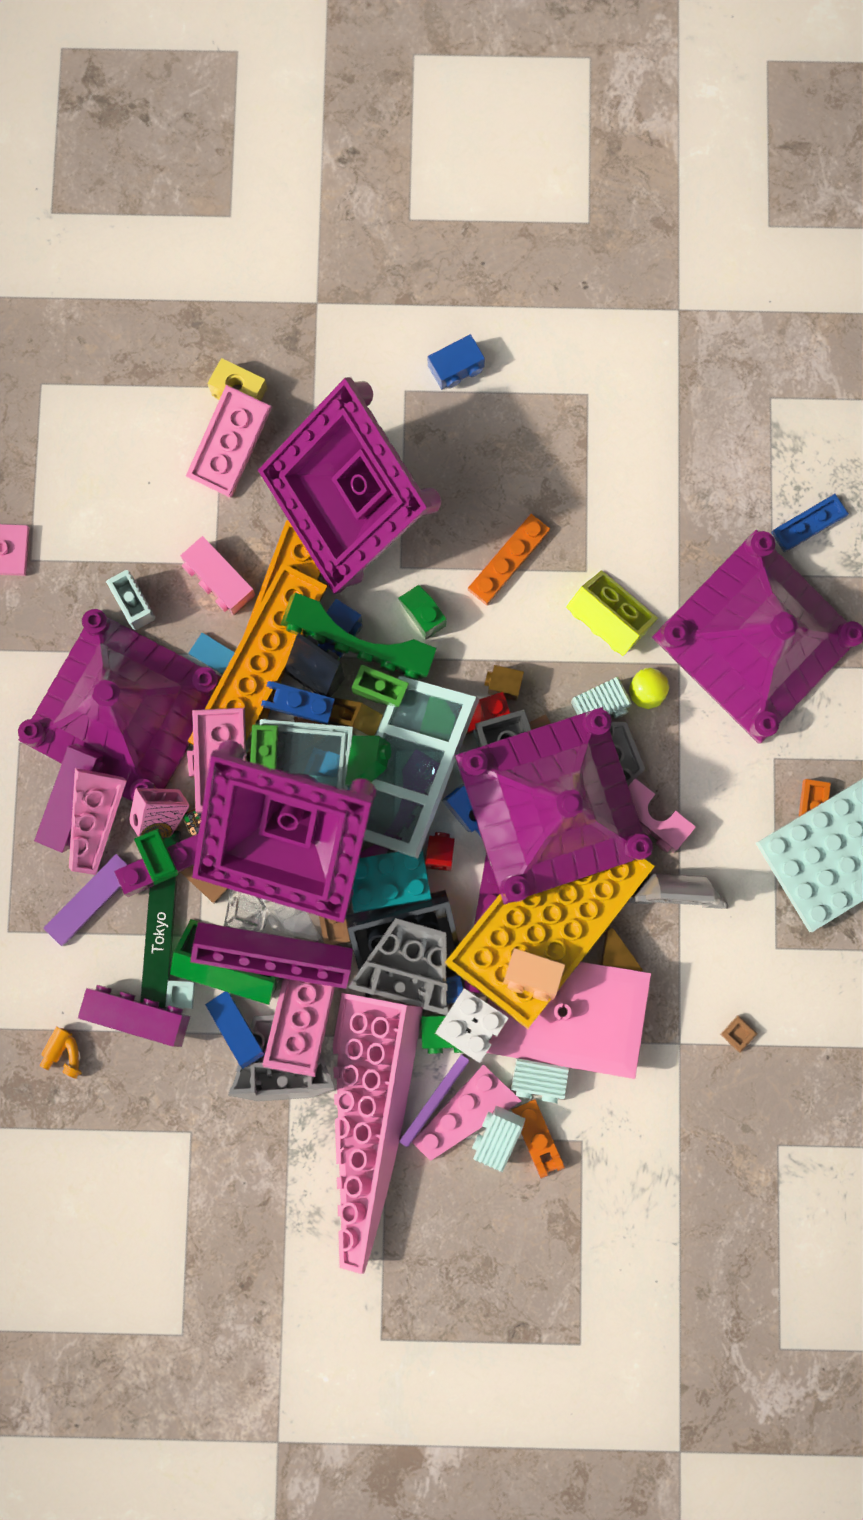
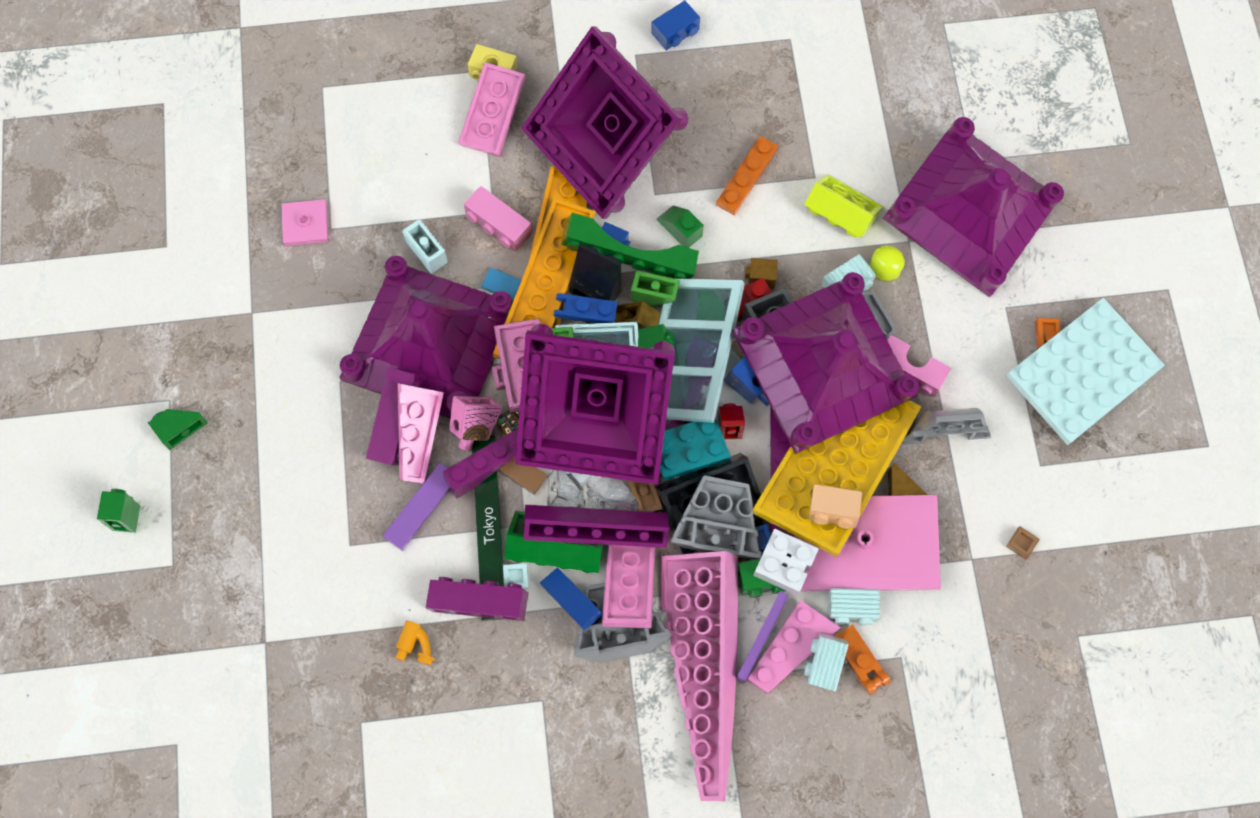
camera: 10 degrees left, 10 degrees down
(156, 856) = (479, 453): green tile -> none
(809, 523) = (998, 114): blue tile -> none

